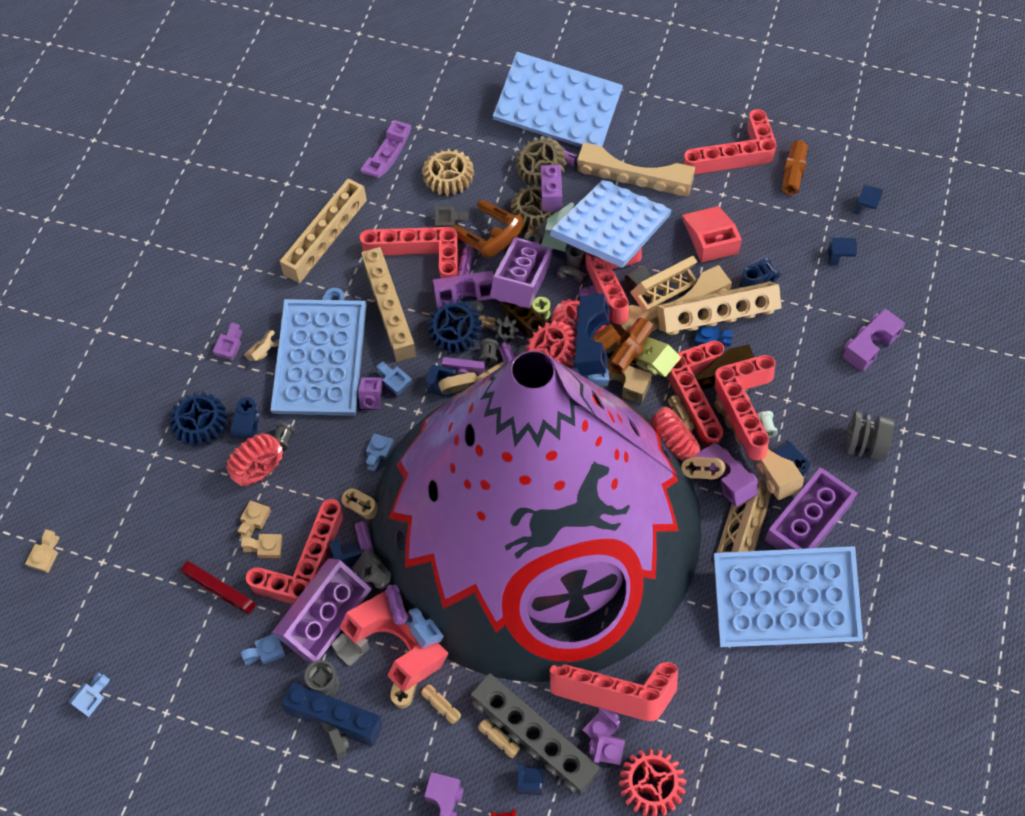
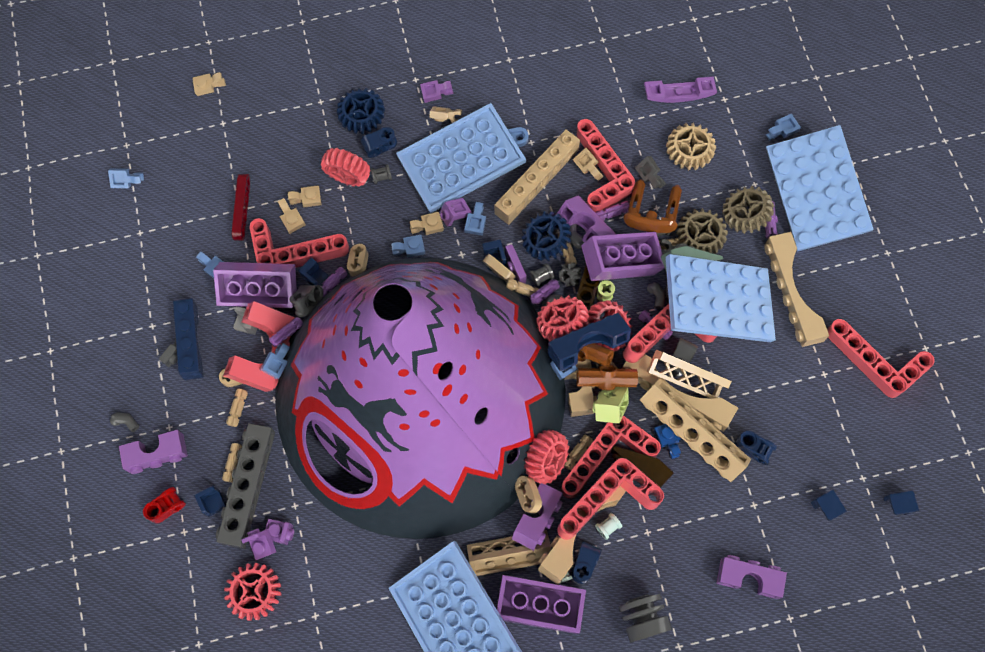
camera: 60 degrees right, 10 degrees up
(322, 678) = (208, 316): dark grey wheel -> none
(323, 231) = (572, 91): tan brick -> none
(366, 421) = (429, 223): none -> tan plate
(402, 257) = (587, 162): none -> tan plate
(480, 96) = (785, 126): none -> medium blue plate
(551, 188) = (720, 232): medium lavender brick -> none
(617, 695) = (298, 505): coral beam -> none
(712, 234) = (772, 384): coral slope -> none
(794, 167) = (894, 420): dark orange piece -> none

